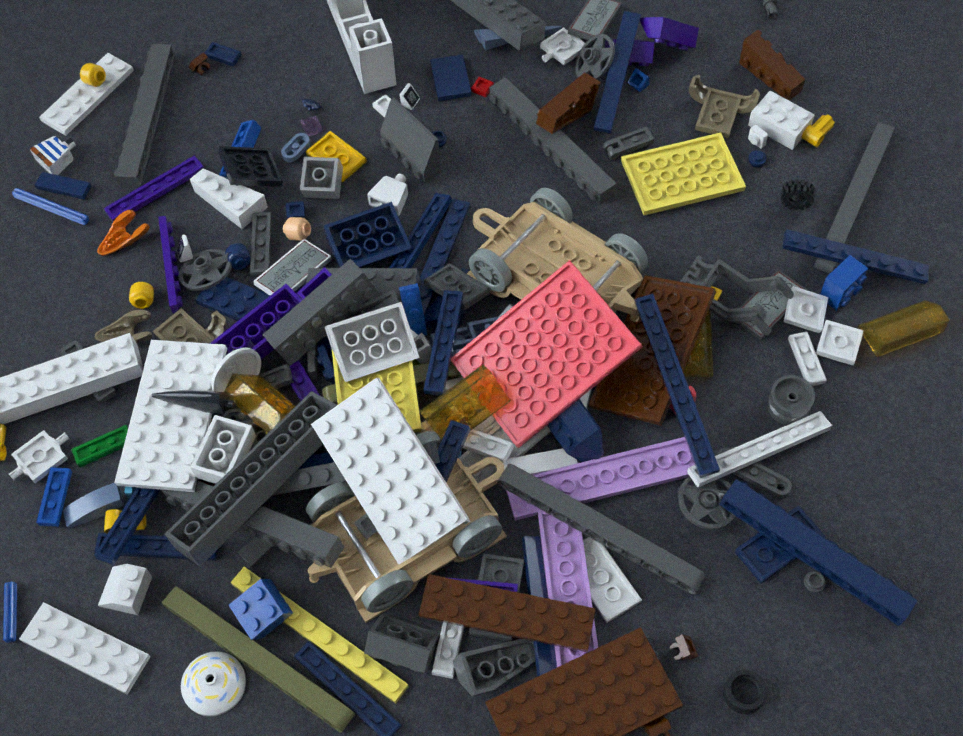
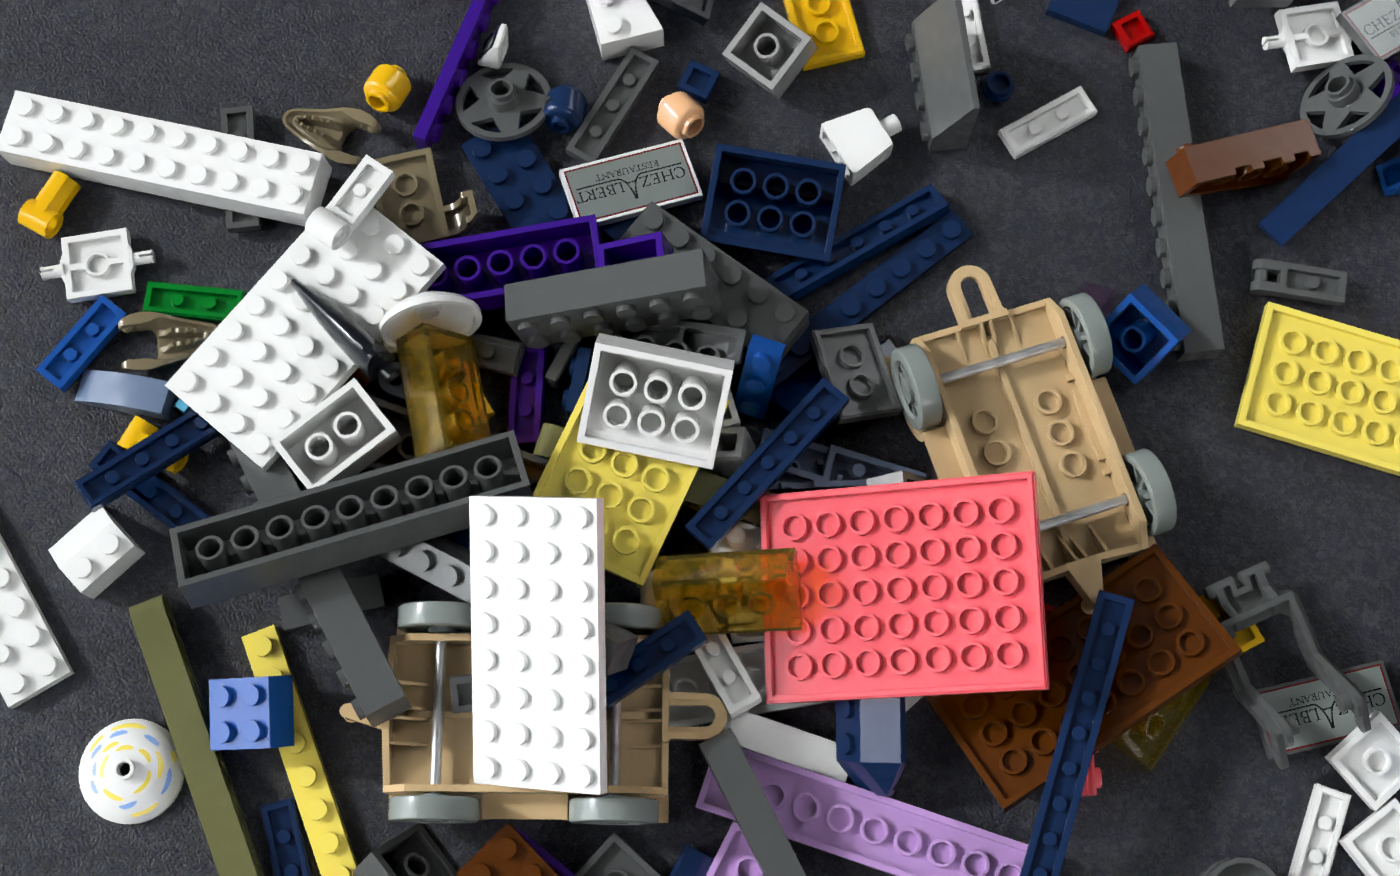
camera: 30 degrees right, 15 degrees up
(102, 466) = (175, 338): none -> dark tan animal
(161, 341) = (350, 204): none -> white plate
(470, 142) = (1047, 122): none -> white tile
(578, 194) = (1143, 333): none -> blue brick

